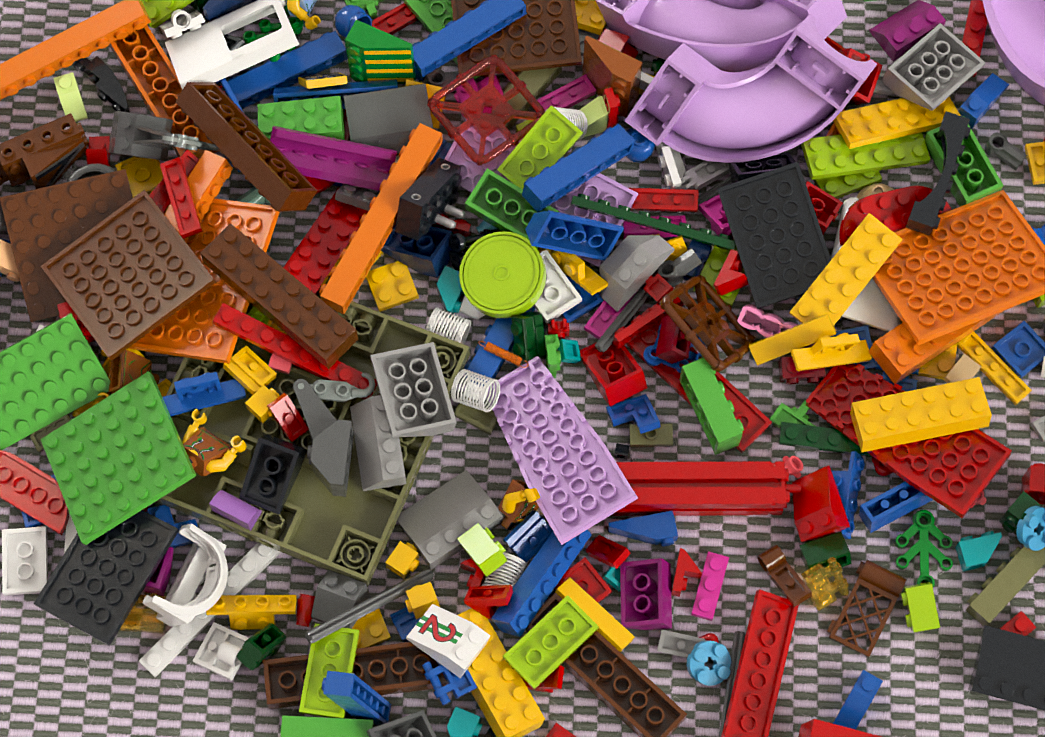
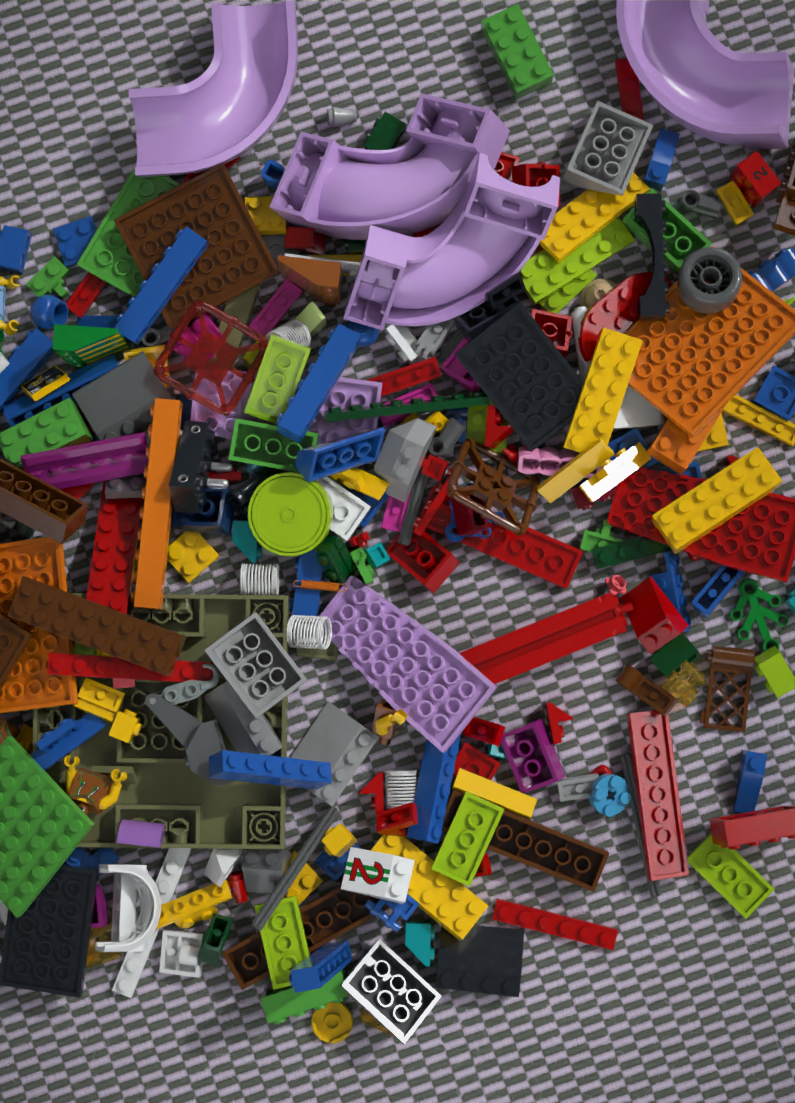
camera: 20 degrees left, 15 degrees up
(272, 473) = (160, 787): black slope -> none
(287, 417) = (152, 732): red plate -> none
(301, 577) = (221, 864): none -> white slope
(385, 492) = (269, 769): none -> blue brick
(403, 559) = (306, 807): yellow brick -> none
(482, 549) = (374, 778): brick -> none
(528, 536) = (407, 745): blue plate -> none
(612, 103) = (326, 308): red plate -> none
(621, 451) = (459, 628): black piece -> none
(635, 409) = (457, 587): blue plate -> none
(652, 528) = (516, 691): blue slope -> none
(655, 438) = (479, 604): olive plate -> none
(710, 586) = (583, 722): dark pink plate -> none
(711, 406) = (526, 564): bright green brick -> none
(736, 305) = (511, 453): none -> red animal
(786, 153) = (504, 291): none -> black slope
(906, 28) = (566, 113): magenta slope -> none
(963, 370) = (736, 439): tan slope -> none
(987, 212) = (714, 266): none -> dark grey wheel

